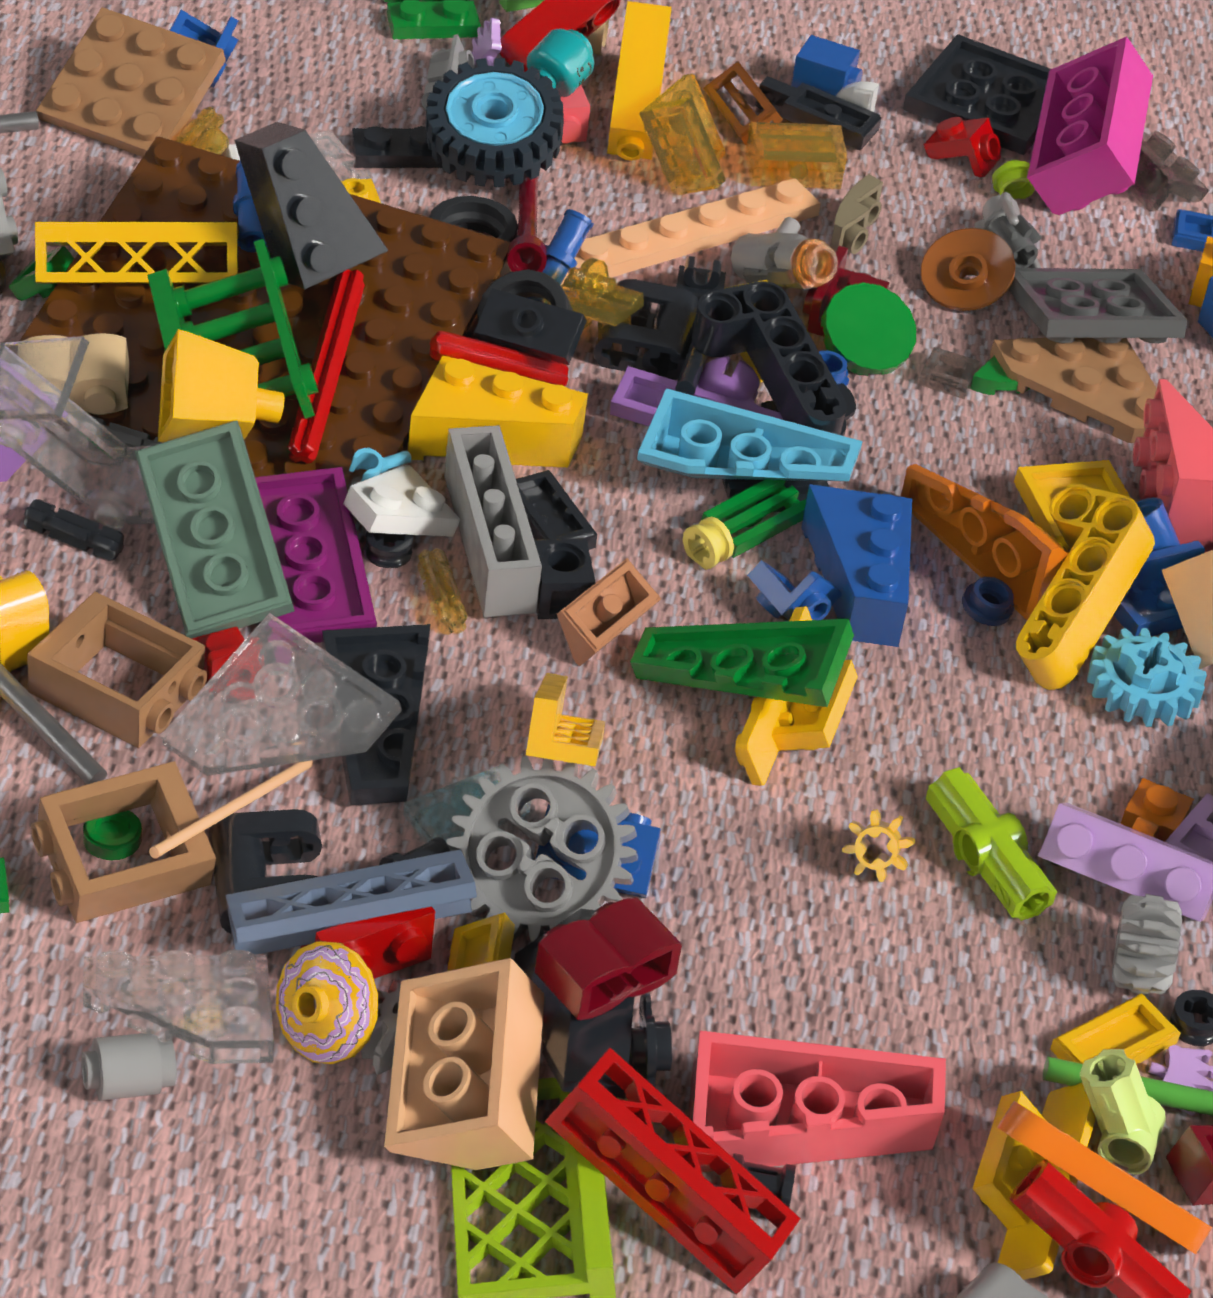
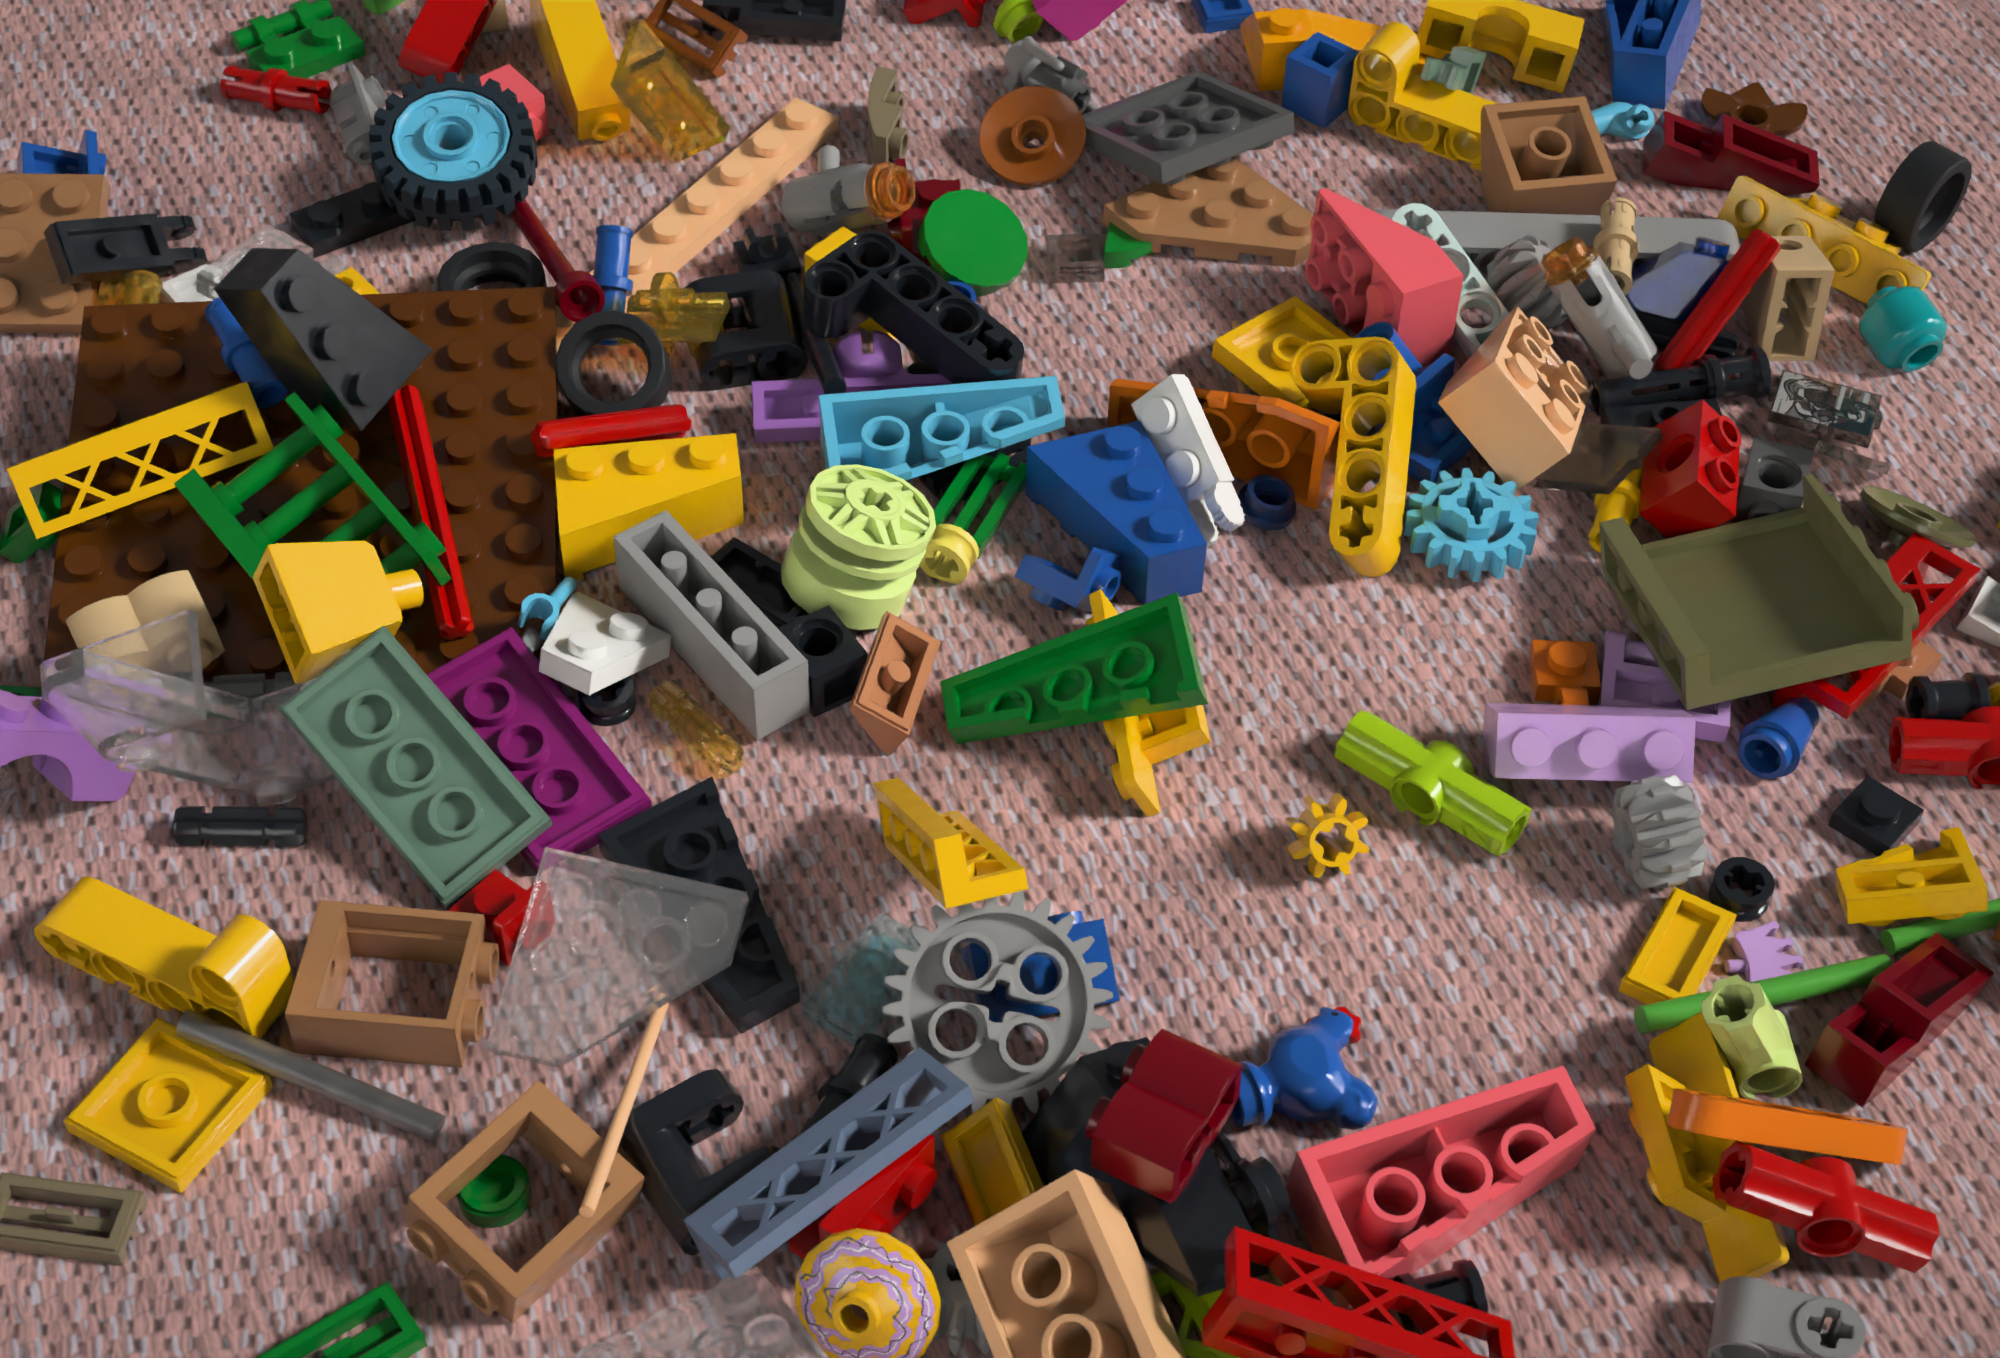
camera: 20 degrees left, 5 degrees up
(207, 103) = (119, 245): none -> black hinge
(393, 37) = (276, 89): none -> red pin
(488, 42) = (386, 62): lavender piece -> none
(530, 326) = (629, 378): black plate -> none
(564, 59) = (492, 50): teal head -> none
(633, 503) = (857, 544): none -> yellowish green wheel
(751, 996) = (1307, 1076): none -> blue animal
(799, 151) = (783, 67): clear yellow brick -> none
(937, 543) = (1190, 454): none -> white hinge

